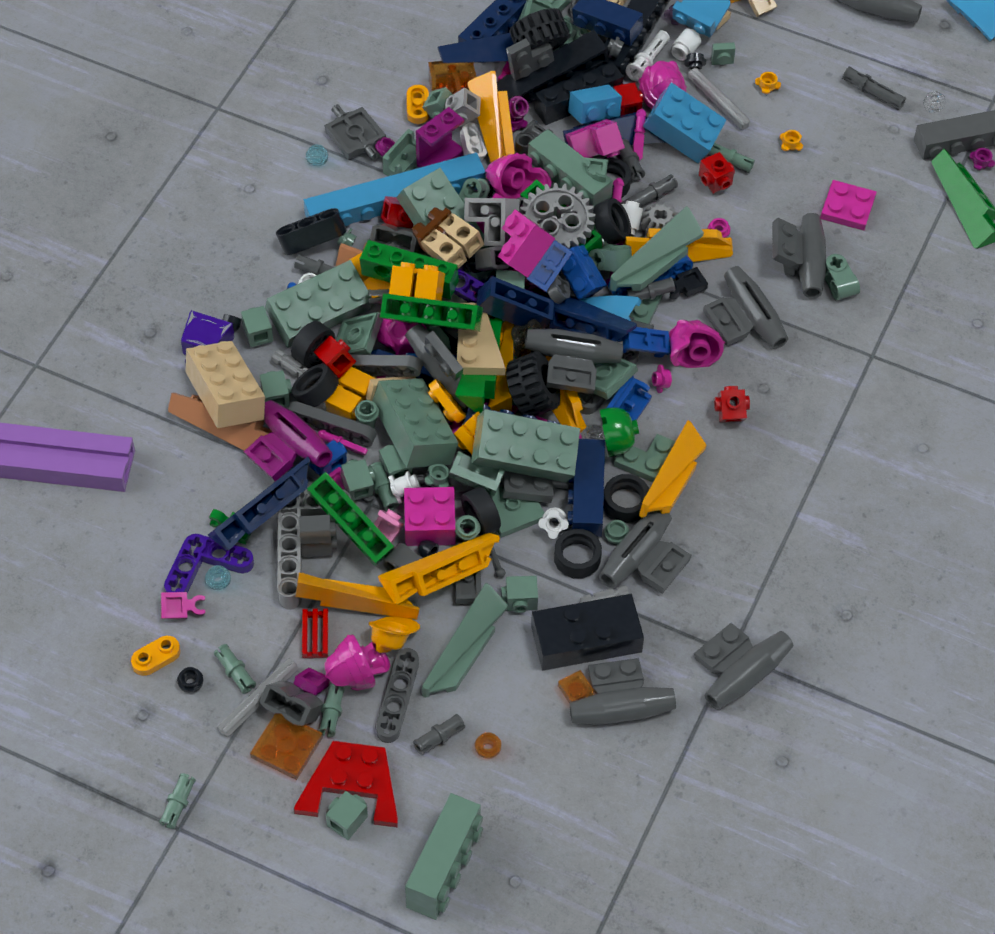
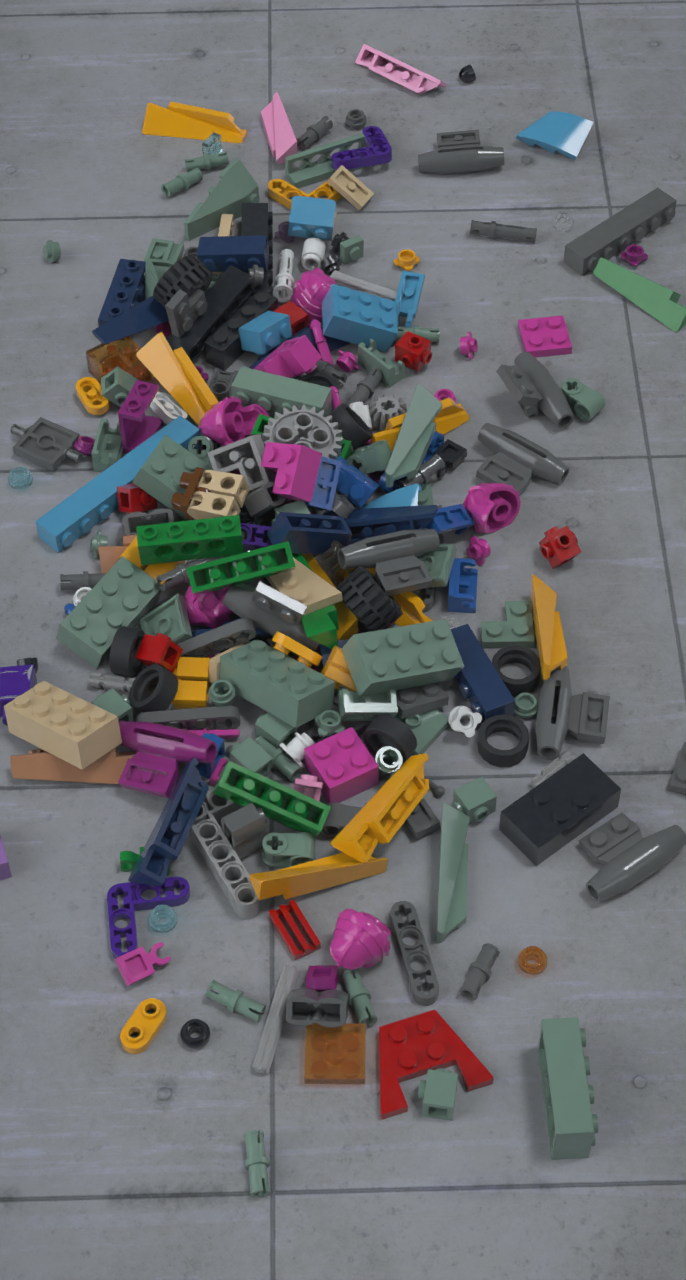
camera: 25 degrees left, 5 degrees down
(257, 326) = (58, 658): sand green brick -> none
(311, 231) = (60, 548): black beam -> none
(348, 566) = (289, 849): none -> sand green piece
(392, 632) = (374, 893): light orange piece -> none
(417, 283) = (198, 547): light orange piece -> none
(427, 548) = (356, 797): black hinge -> none
(465, 104) = (145, 371): light grey brick -> none
(523, 107) = (197, 359): magenta plate -> none
(575, 686) = (581, 866): clear orange plate -> none
(596, 168) = (311, 383): sand green tile -> none
(618, 430) = (472, 608): green cylinder -> none
(654, 158) = (346, 361): none -> dark pink plate
(682, 170) = (372, 358): none -> sand green hinge
(716, 38) = (337, 240): none -> black plate
(741, 121) = (409, 296): none -> dark azure hinge
(771, 186) = (468, 345): none -> dark pink plate
(791, 140) = (459, 300): light orange plate -> none

